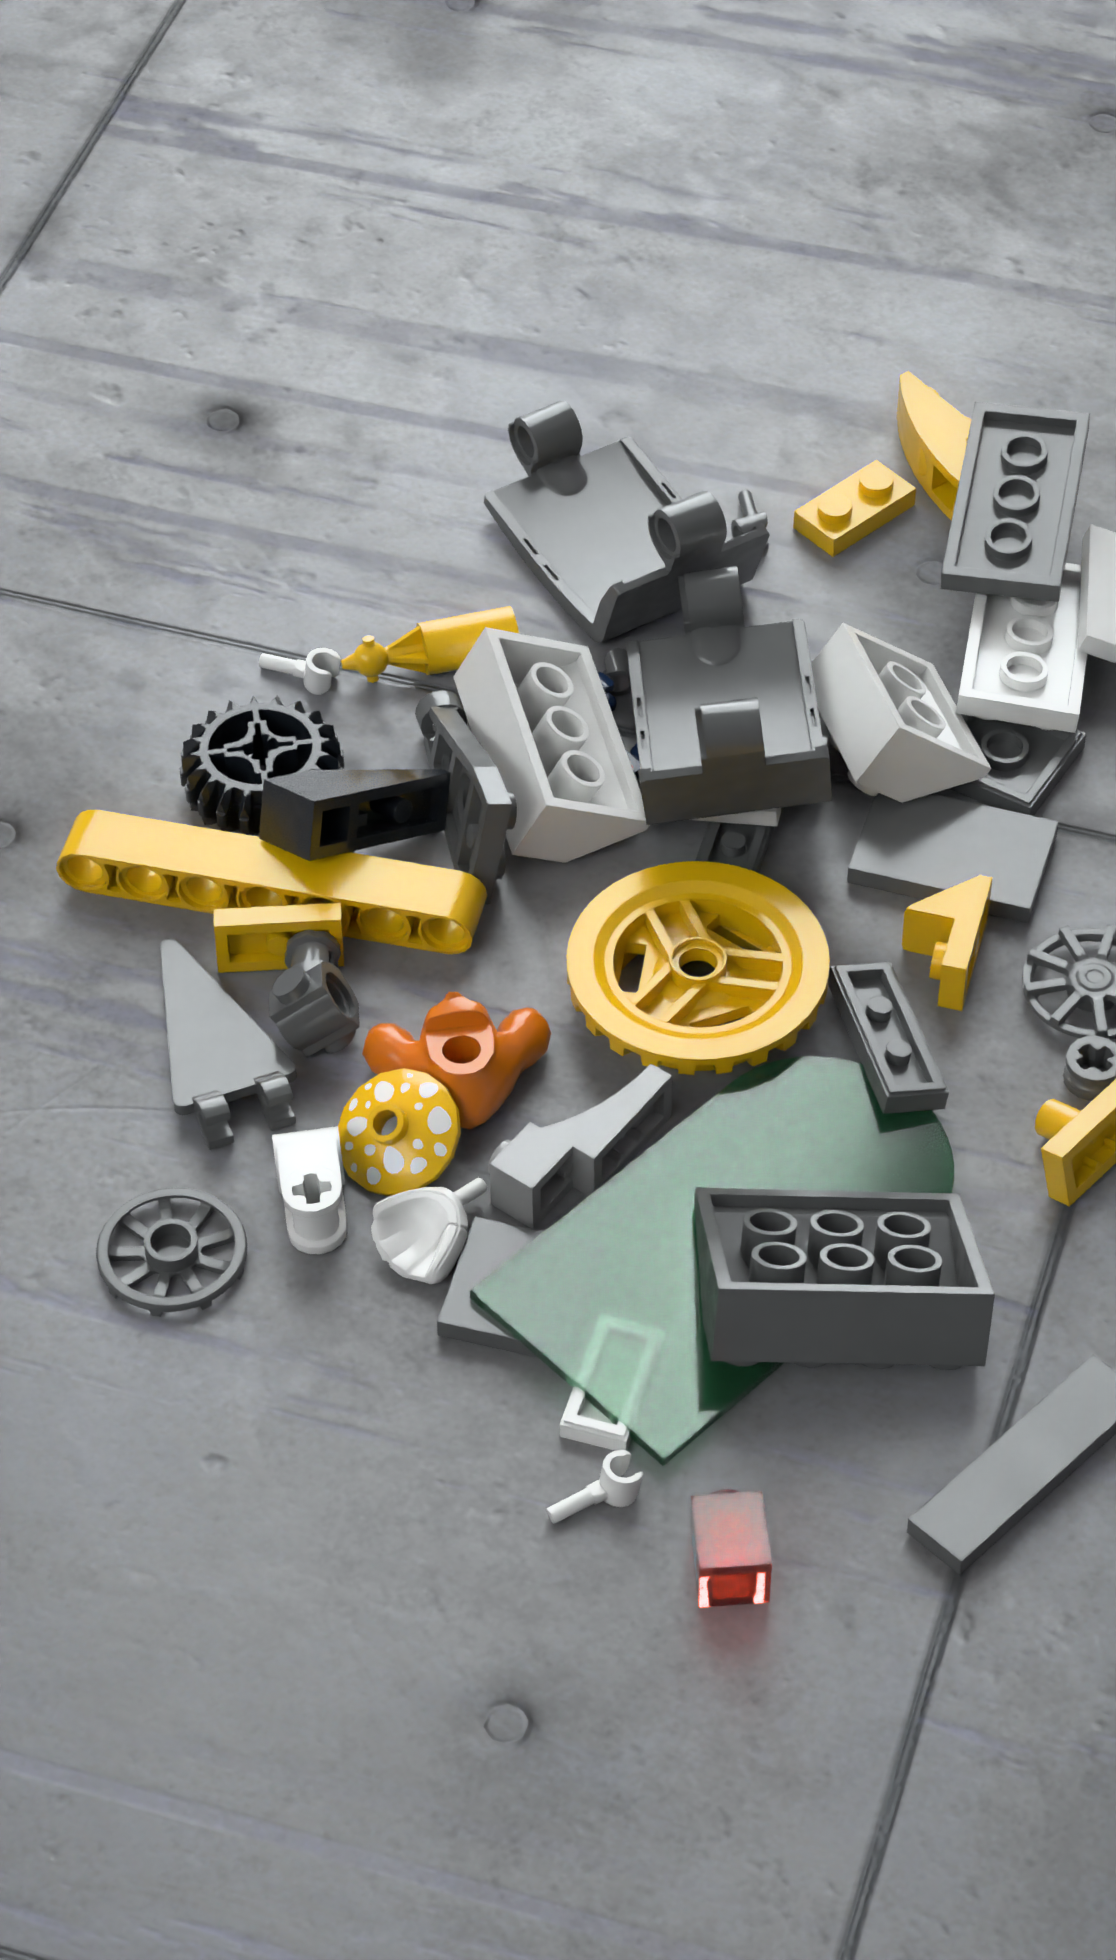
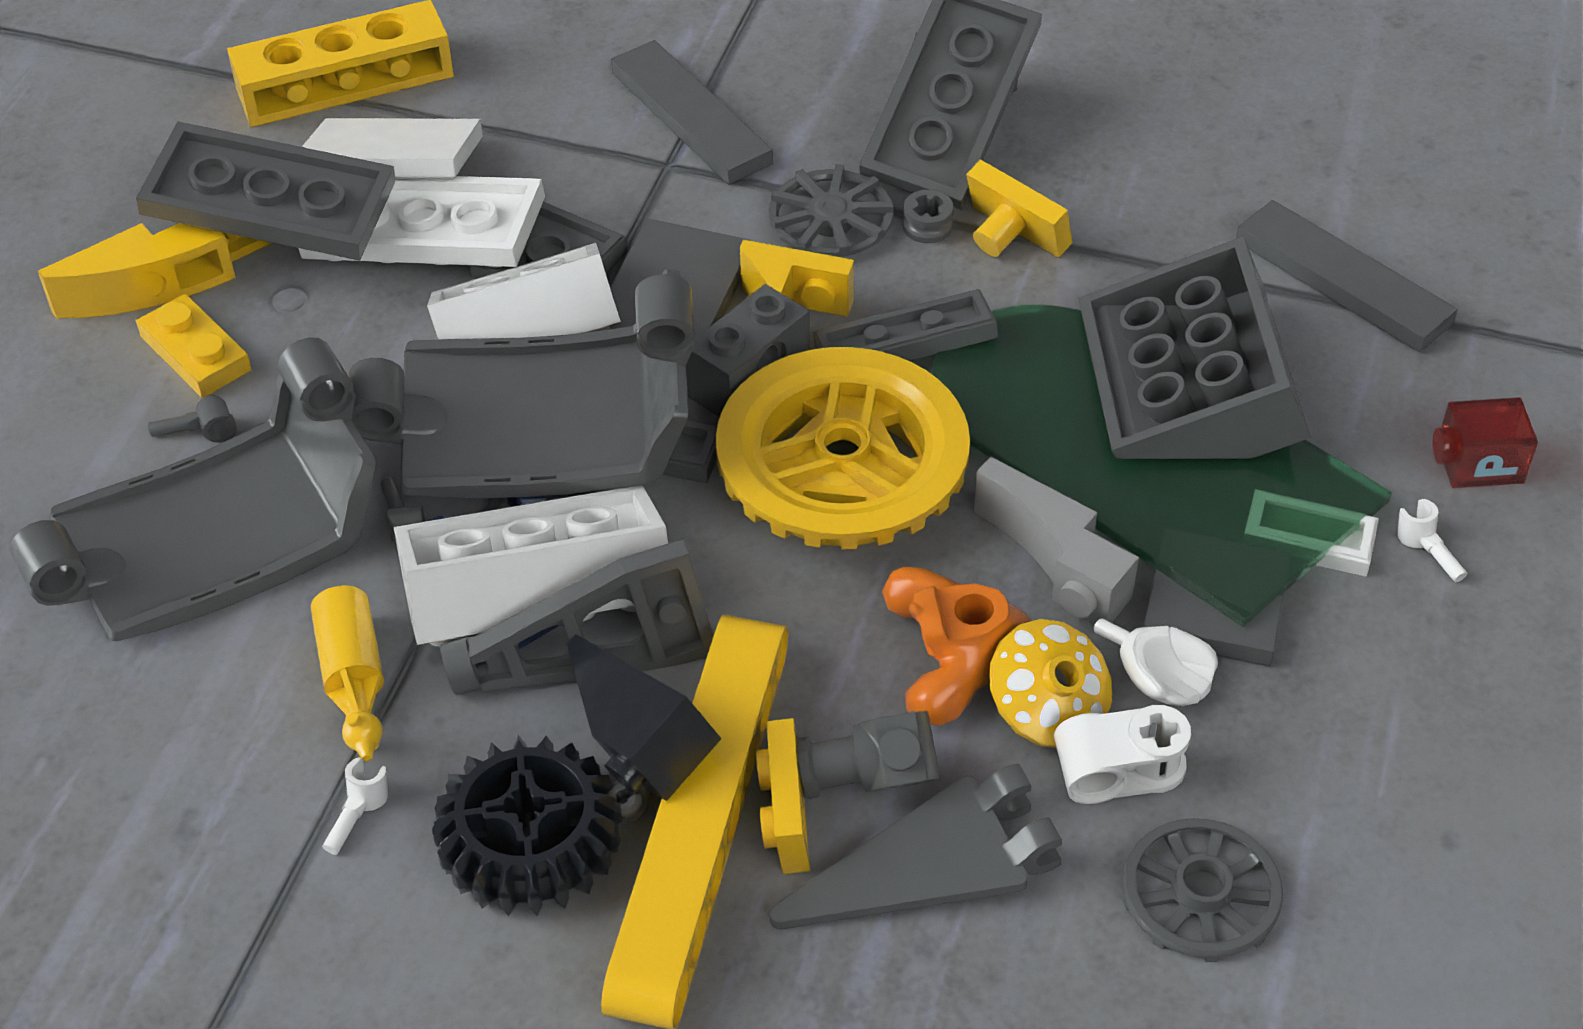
camera: 90 degrees left, 0 degrees up
(848, 895) = (743, 342): none -> dark grey brick

